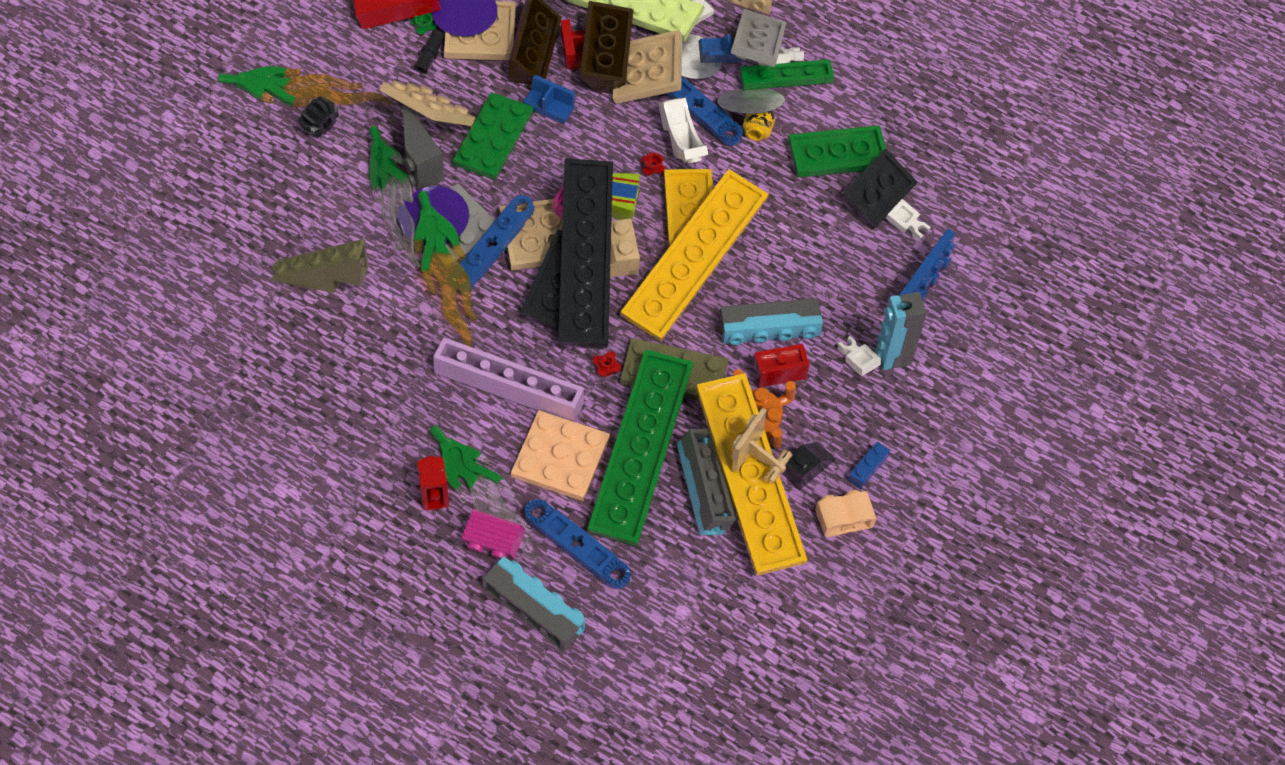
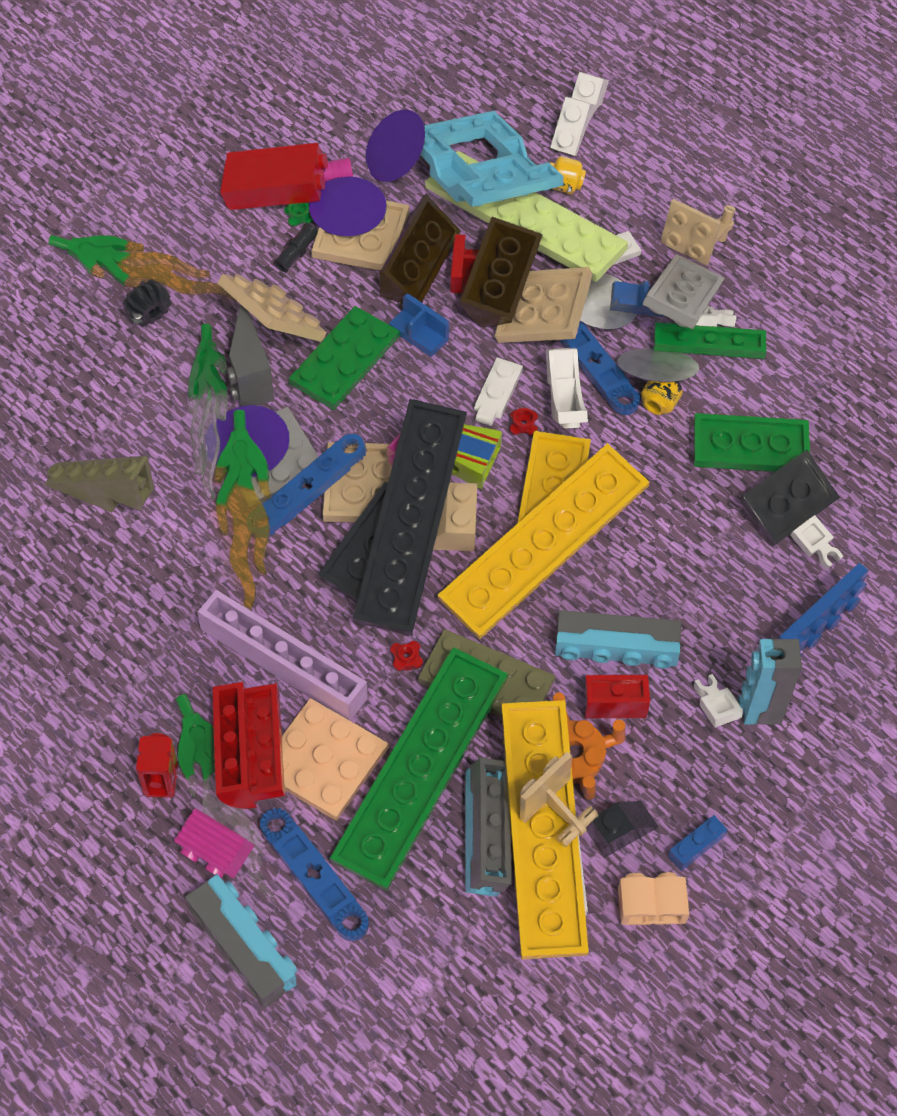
camera: 15 degrees right, 0 degrees up
(500, 453) = (247, 744): none -> red brick
(625, 142) = (497, 391): none -> white hinge

